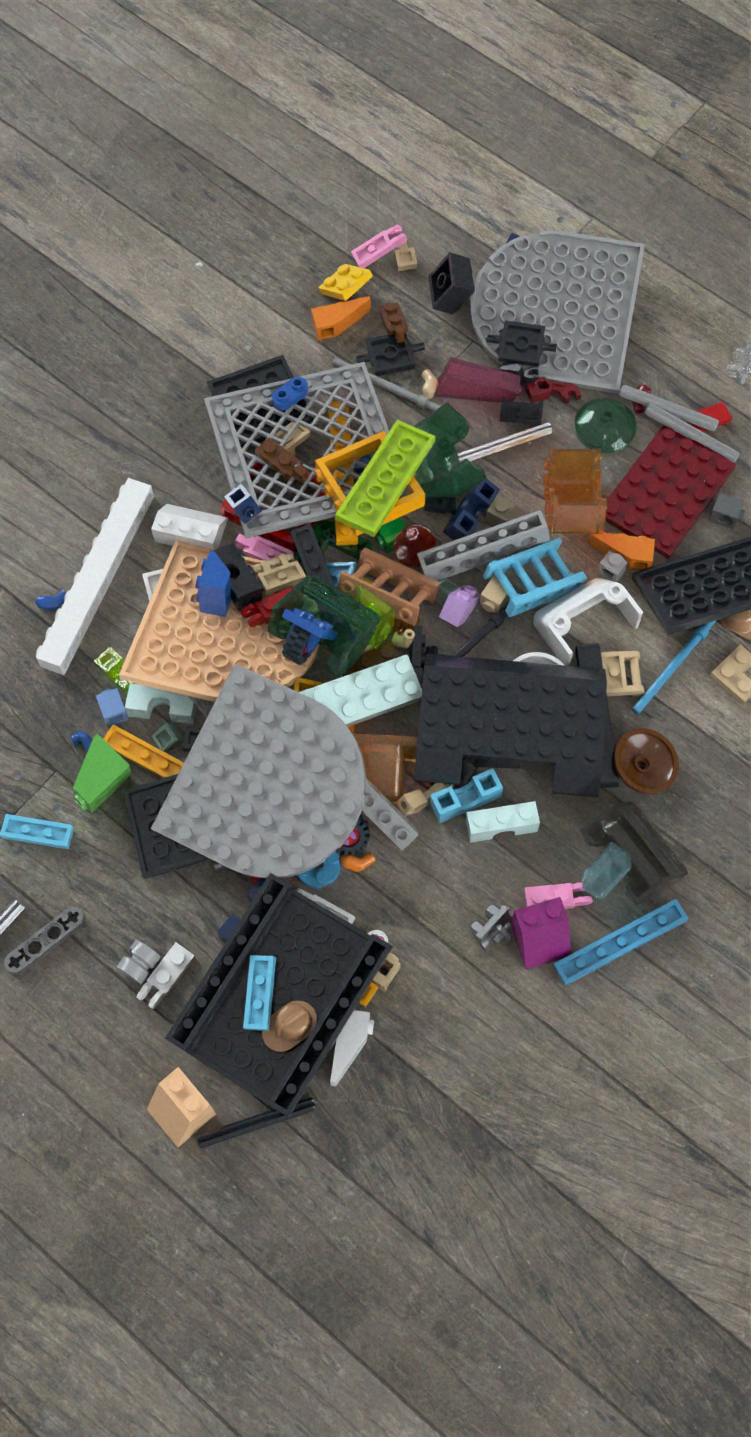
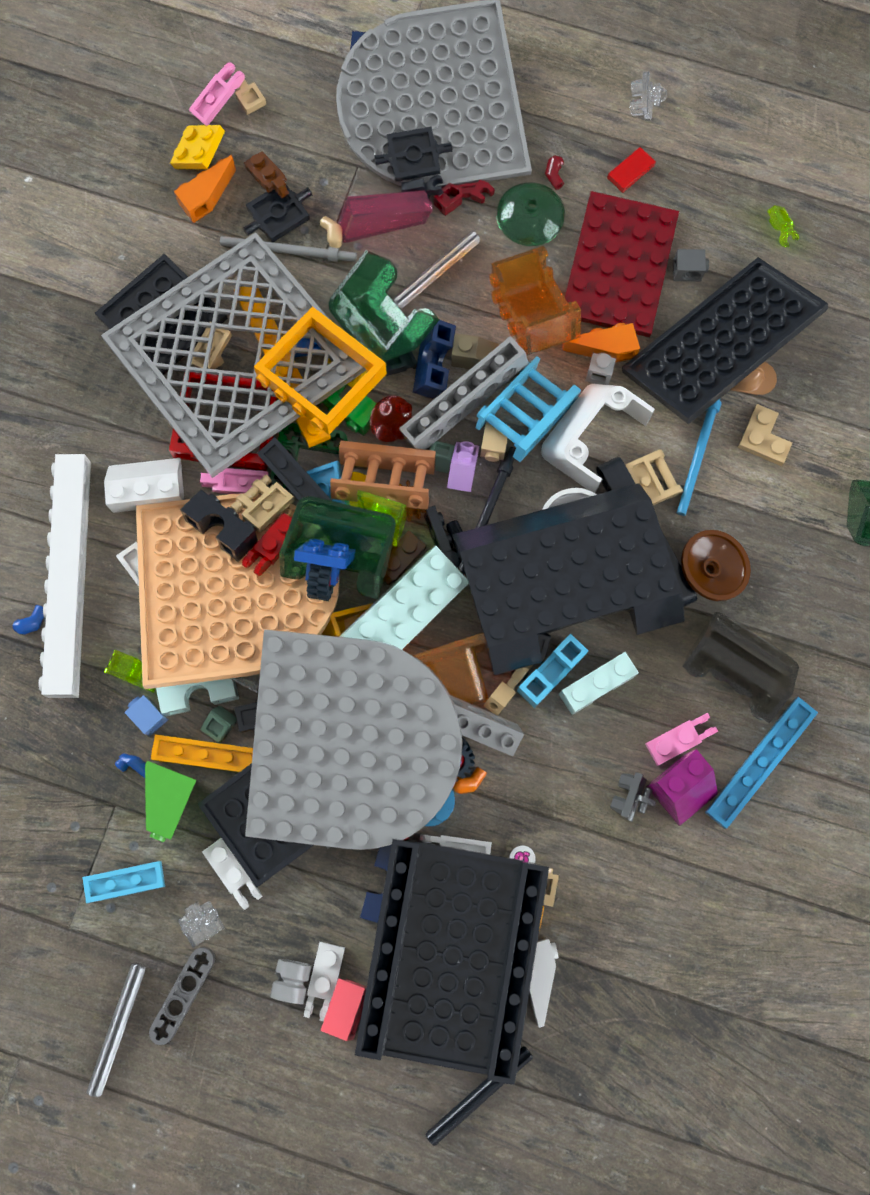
camera: 25 degrees left, 10 degrees up
(84, 886) = (200, 923): none -> clear brick
(127, 857) = (230, 871): none -> white hinge
(170, 1003) = (344, 1010): none -> coral hinge
(179, 1107) = (400, 1116): light nougat slope -> none
(213, 586) = (202, 547): blue slope -> none
(243, 503) = (196, 444): dark blue brick -> none
(259, 993) = (431, 967): medium azure plate -> none
(281, 460) = (215, 377): reddish brown hinge -> none
(290, 1026) = (474, 986): medium nougat piece -> none
(293, 390) = (193, 295): blue plate -> none
(385, 478) = (337, 361): lime plate -> none
(403, 640) = (424, 528): tan arm -> none
(451, 283) = (312, 110): black brick -> none
(521, 412) = (441, 231): black hinge -> none
(606, 871) = (724, 698): clear light blue brick -> none
(677, 410) = (583, 172): light grey axle -> none
(691, 432) = (621, 192): light grey axle -> none

